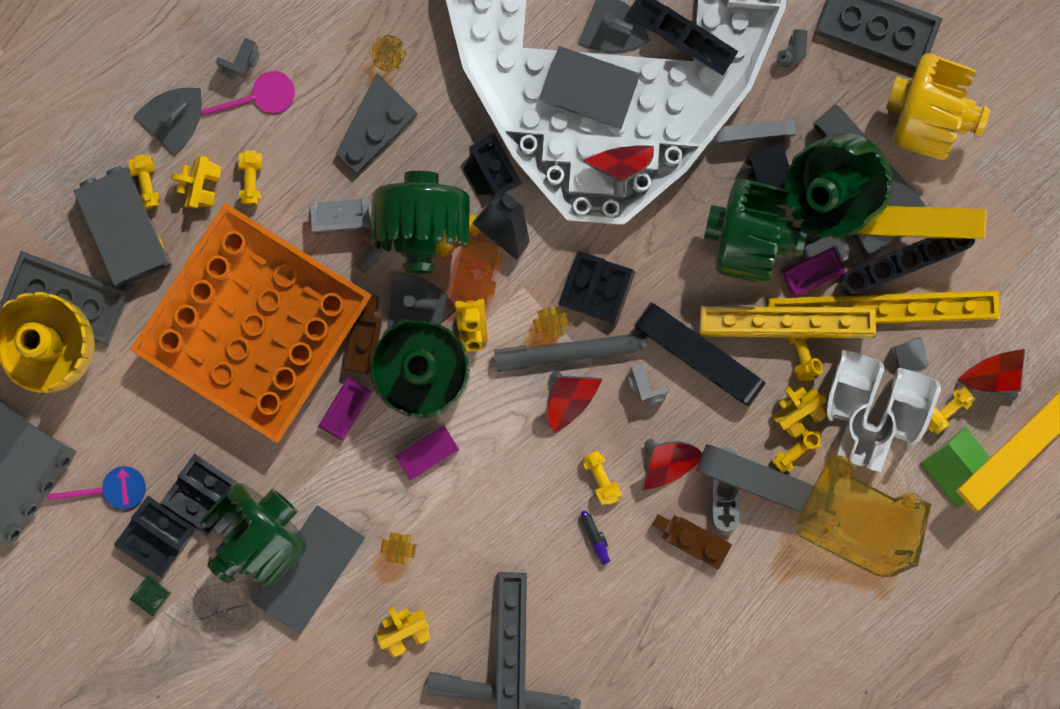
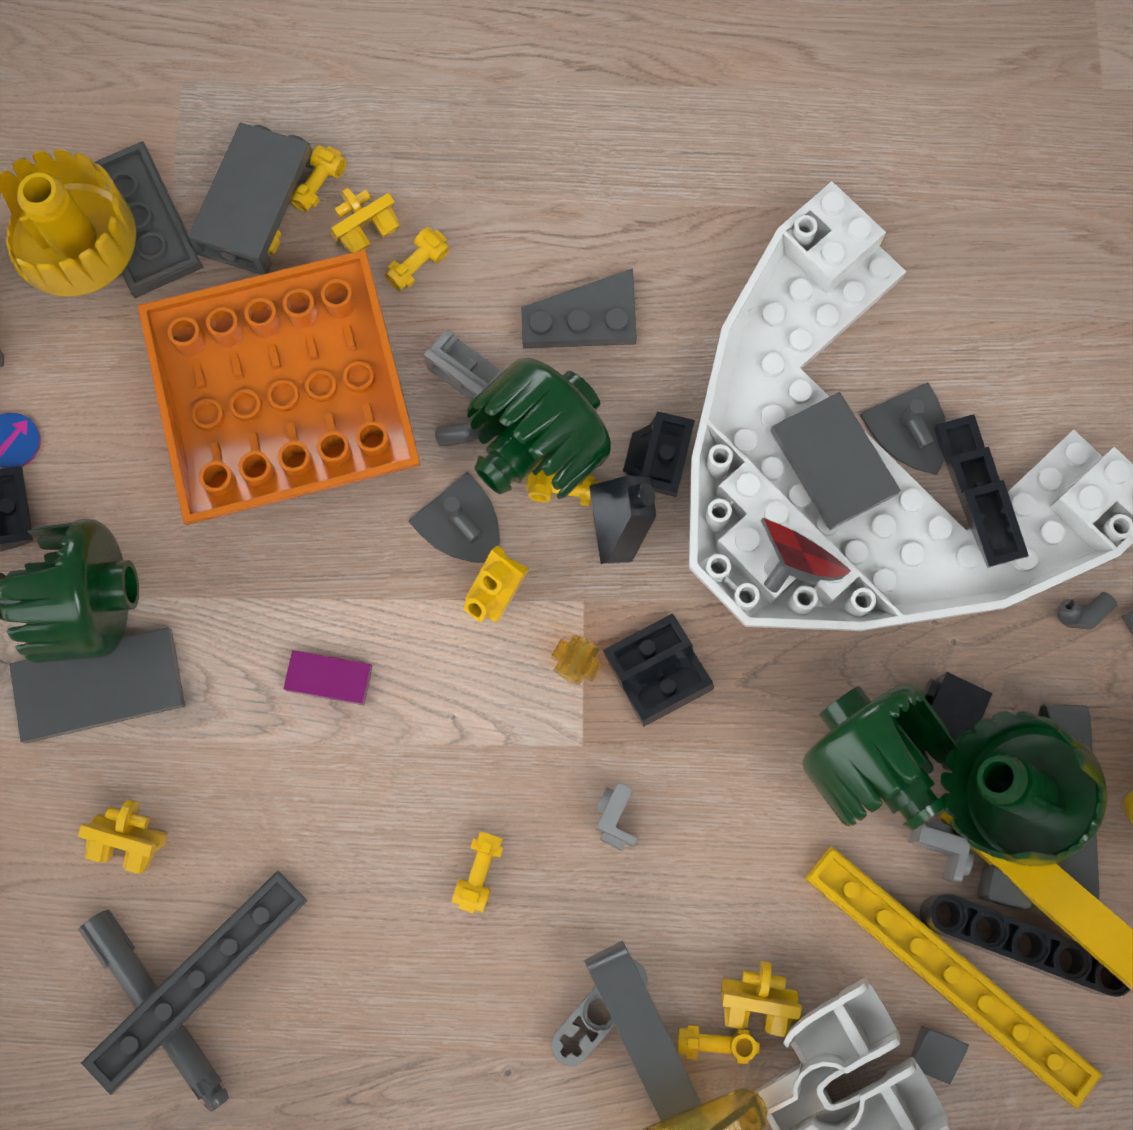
camera: 45 degrees right, 10 degrees down
(172, 116) = (402, 148): dark grey shield -> none
(196, 492) = (69, 499): black slope -> none
(246, 58) = (515, 149): dark grey bracket -> none
(271, 92) = (513, 205): dark pink piece -> none
(345, 409) = (291, 559): magenta tile -> none
(364, 337) = (377, 505): reddish brown hinge -> none
(388, 52) = (660, 257): clear yellow gear -> none
(398, 548) = (201, 746): clear yellow gear -> none
(419, 369) = (394, 578): dark green piece -> none
(465, 284) = (557, 521): clear orange brick -> none
(523, 357) = (516, 670): dark grey piece -> none
(569, 398) = (522, 755): shield -> none
(596, 538) = (414, 933): piece -> none
(669, 462) = (565, 923): shield -> none
(693, 540) = (514, 1036): reddish brown hinge -> none
(700, 354) = (704, 839): black beam -> none
(755, 132) = (970, 658): light grey beam -> none
(788, 322) = (834, 892): yellow tile -> none
(809, 368) = (809, 963): yellow bar -> none
(813, 272) = (905, 863): magenta tile -> none

